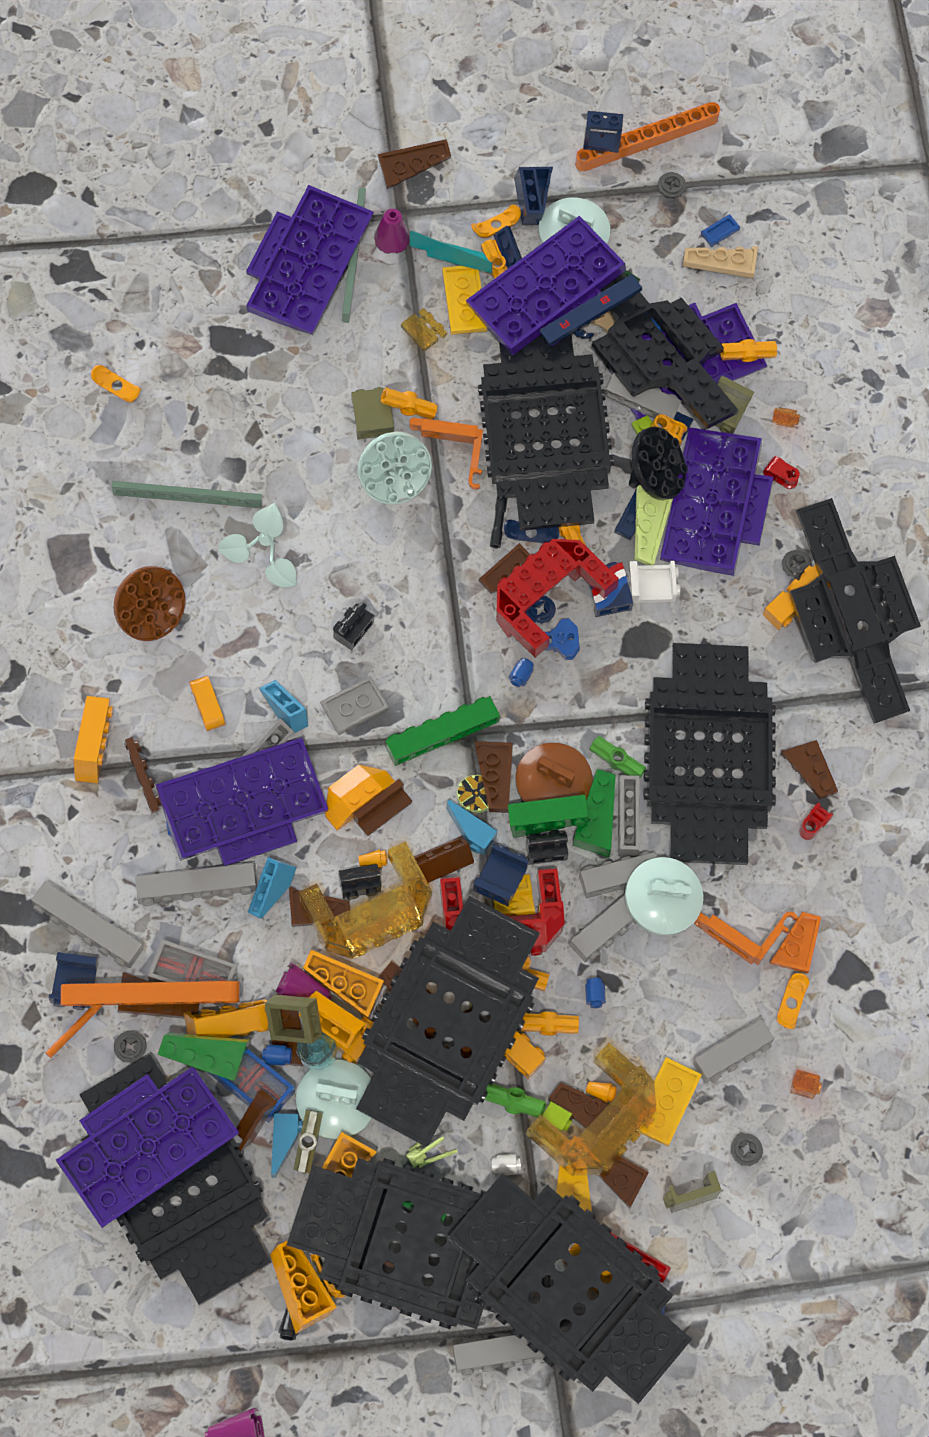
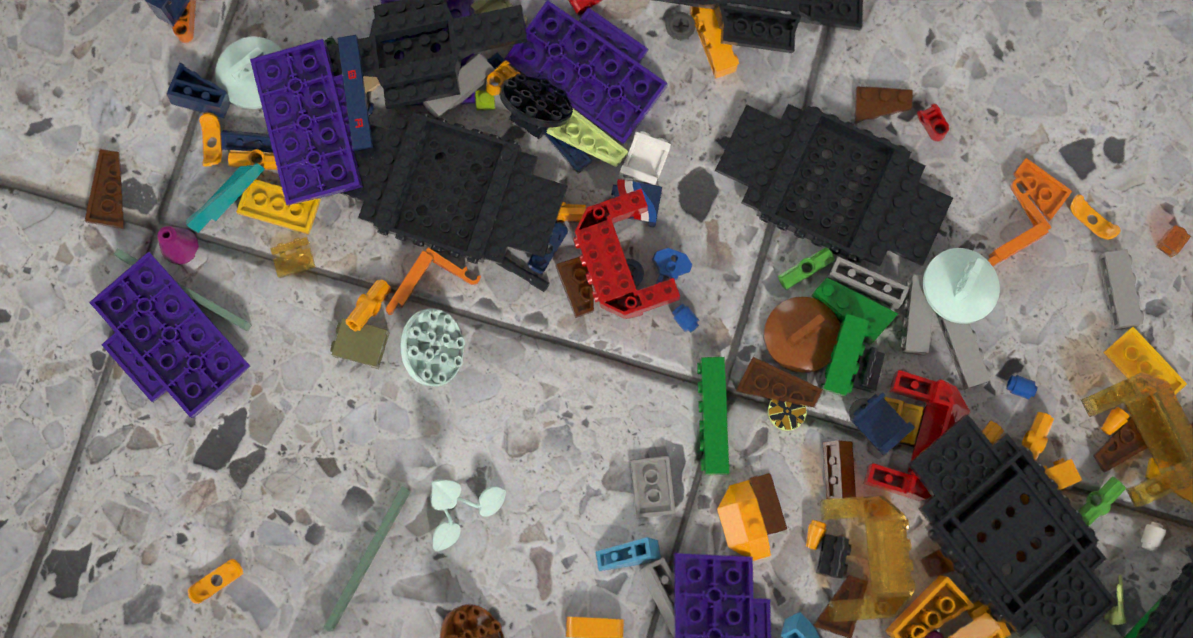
camera: 60 degrees left, 10 degrees up
(353, 626) = (574, 455): black brick -> none
(474, 831) = (825, 429): dark azure slope -> none
(558, 1117) = (1127, 472): lime brick -> none

